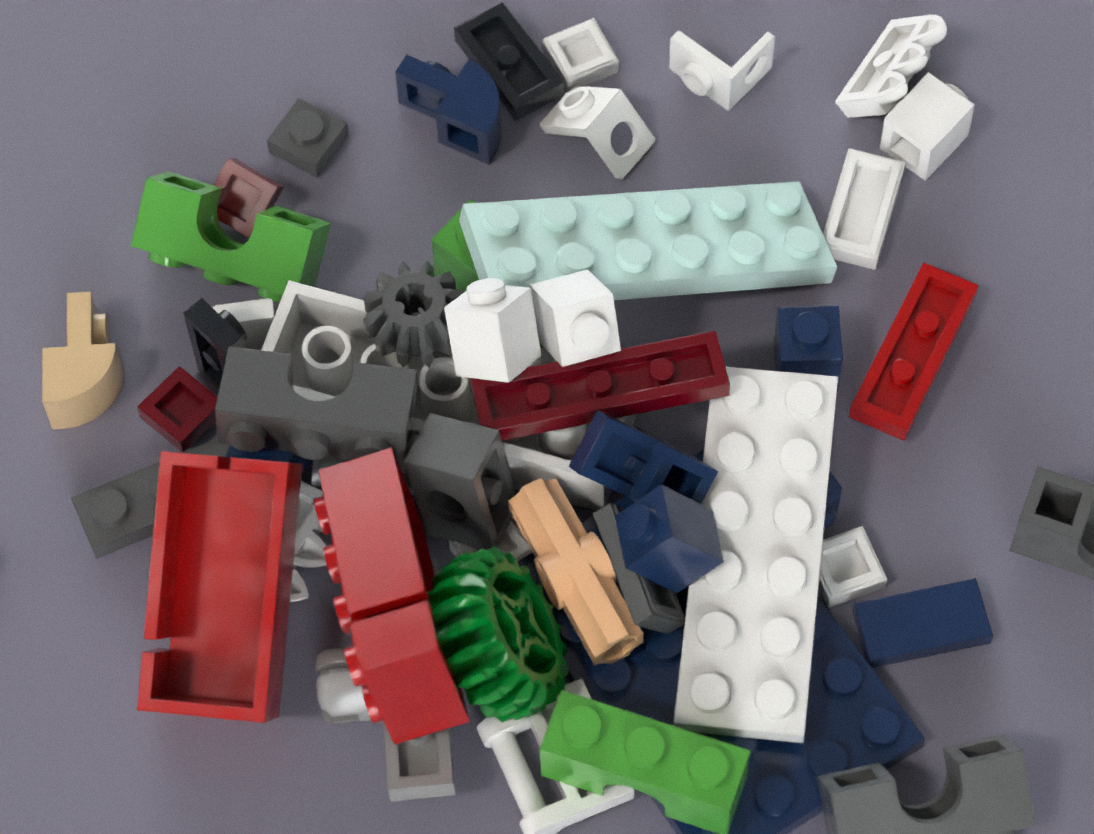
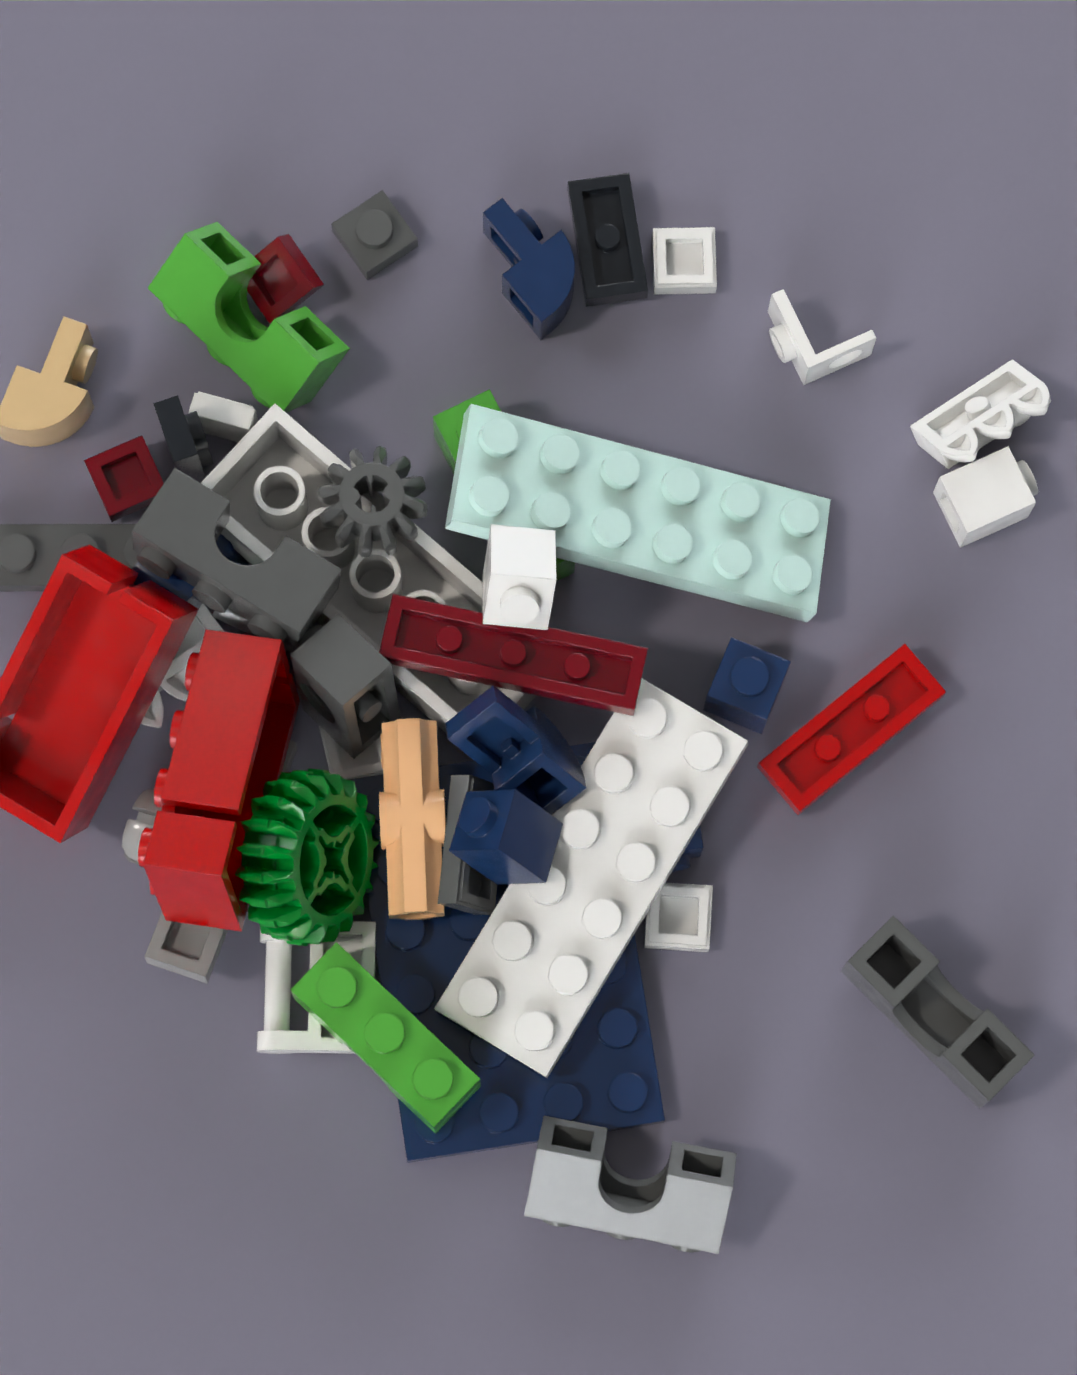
camera: 20 degrees right, 15 degrees up
(492, 331) = (432, 560): white brick -> none
(594, 114) = (658, 339): white bracket -> none
(862, 207) = (880, 552): white tile -> none
(922, 623) = (722, 1005): dark blue tile -> none

